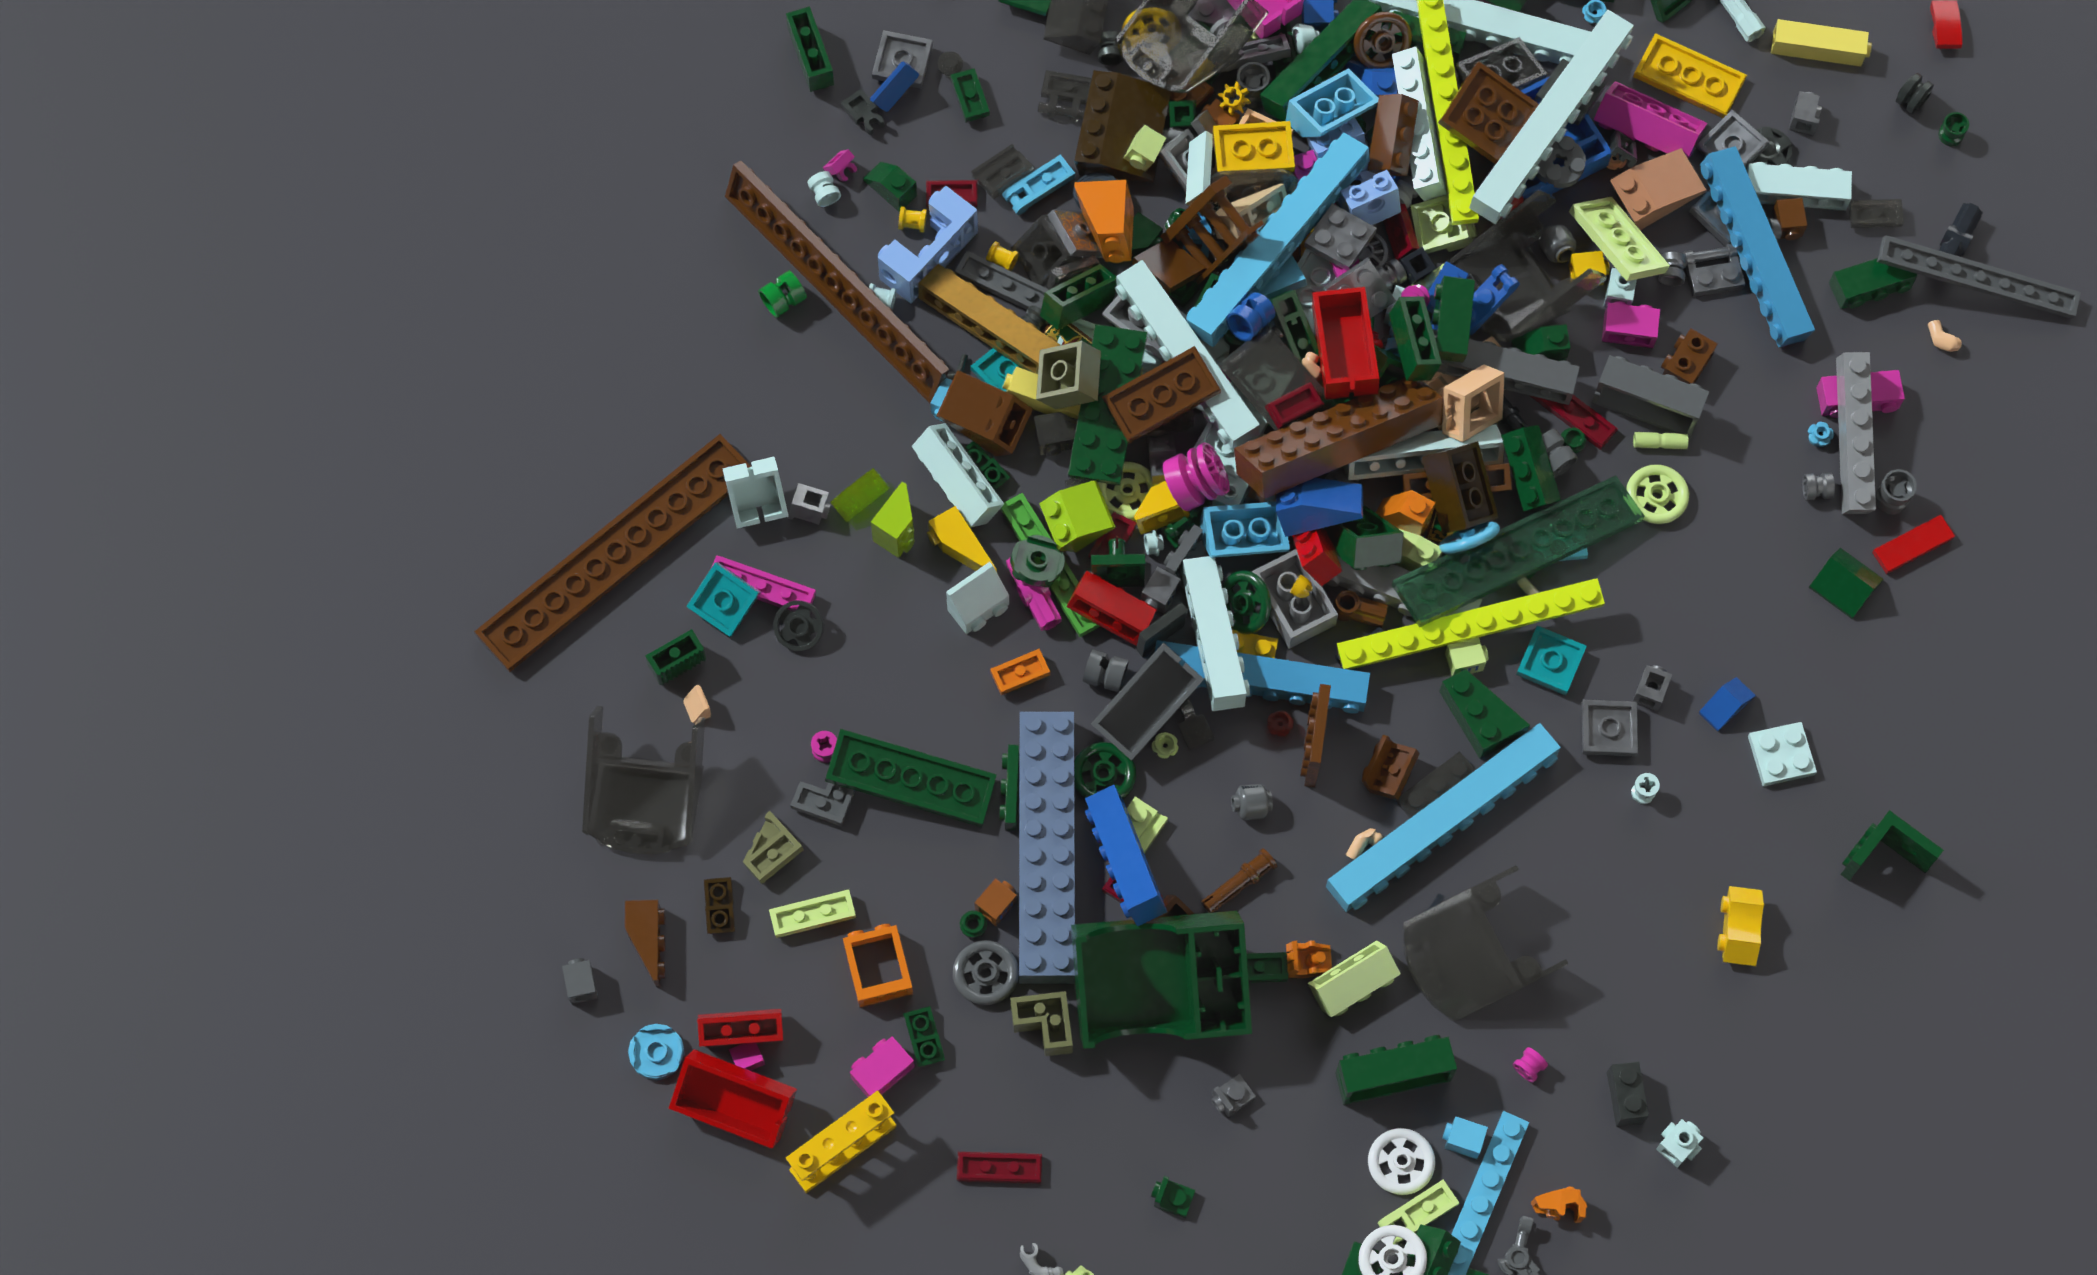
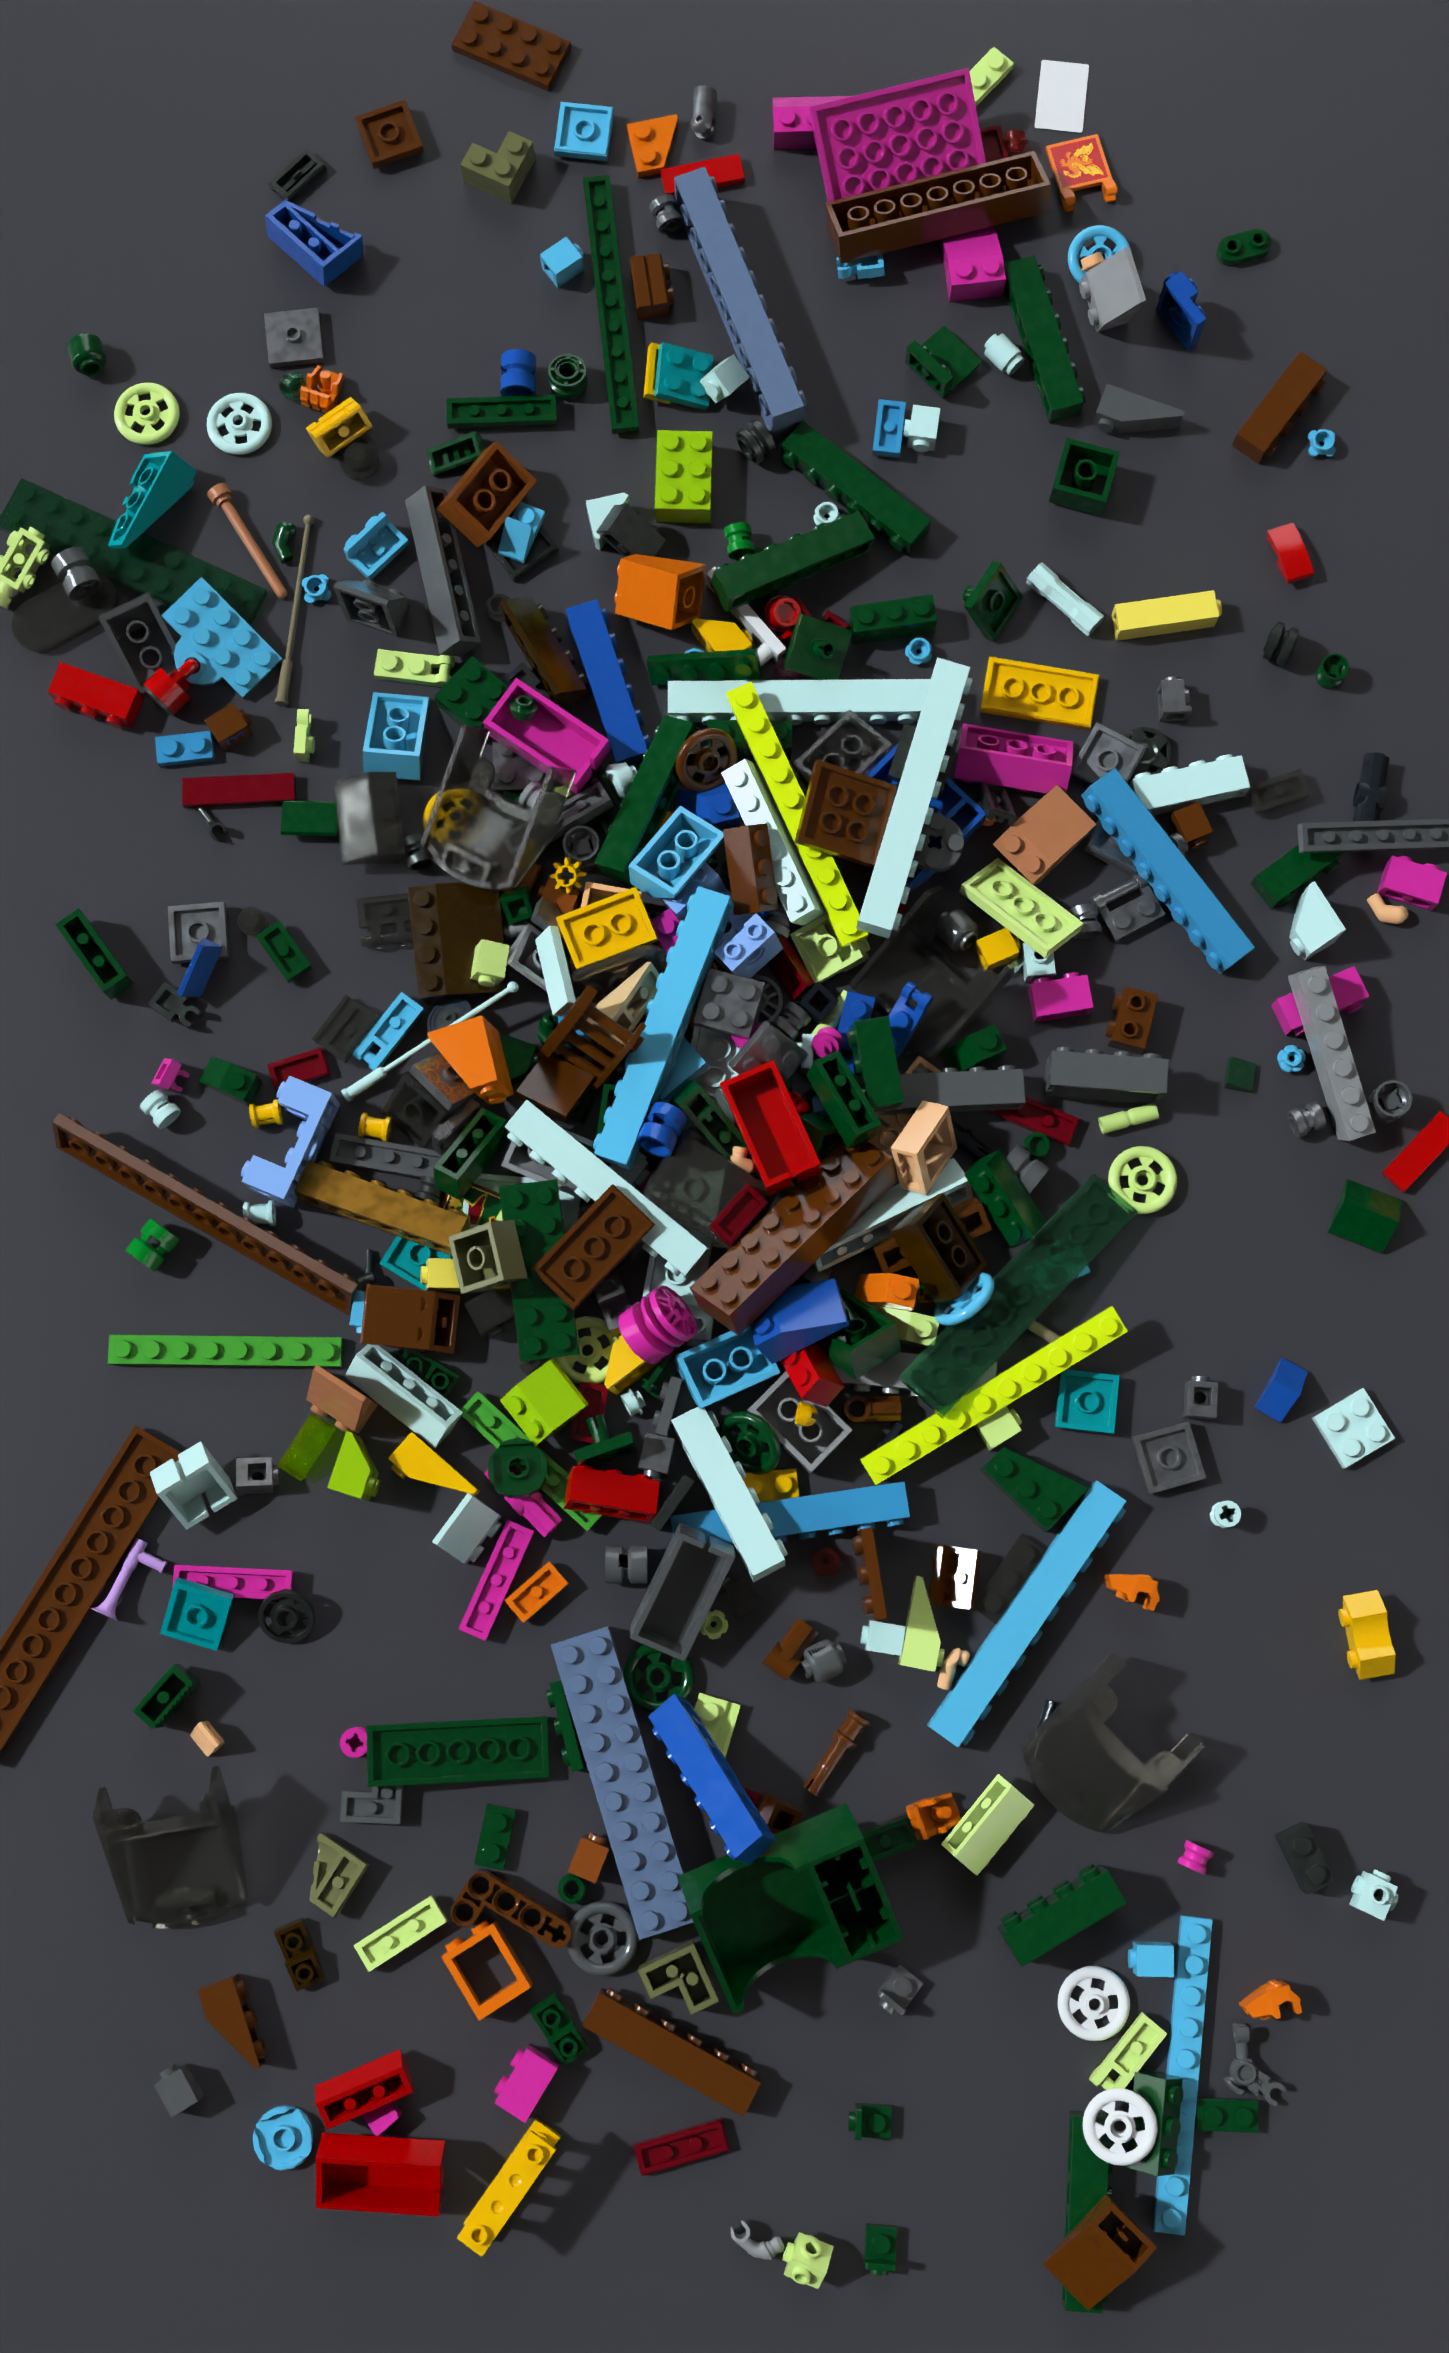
camera: 15 degrees left, 10 degrees up
(687, 540) = (134, 1556): none -> lavender piece
(816, 399) = (225, 1351): none -> bright green plate
(903, 458) = (339, 1400): none -> nougat slope
(918, 926) = (516, 1914): none -> reddish brown beam
(919, 862) = (495, 1836): none -> dark green plate
(988, 652) = (496, 1580): none -> dark pink plate
(1017, 1083) = (672, 2051): none -> reddish brown brick
(1022, 214) = (378, 1074): none -> light aqua piece
(1220, 788) = (787, 1654): none -> reddish brown piece
(1311, 799) = (883, 1637): none -> light aqua brick
(1343, 810) = (921, 1637): none -> yellowish green slope
(1541, 819) = (1128, 1586): none -> orange hand
(1770, 434) = (1239, 1074): none -> dark green slope
(1875, 327) = (1314, 923): none -> light aqua slope
(1972, 320) = (1412, 882): none -> dark pink brick

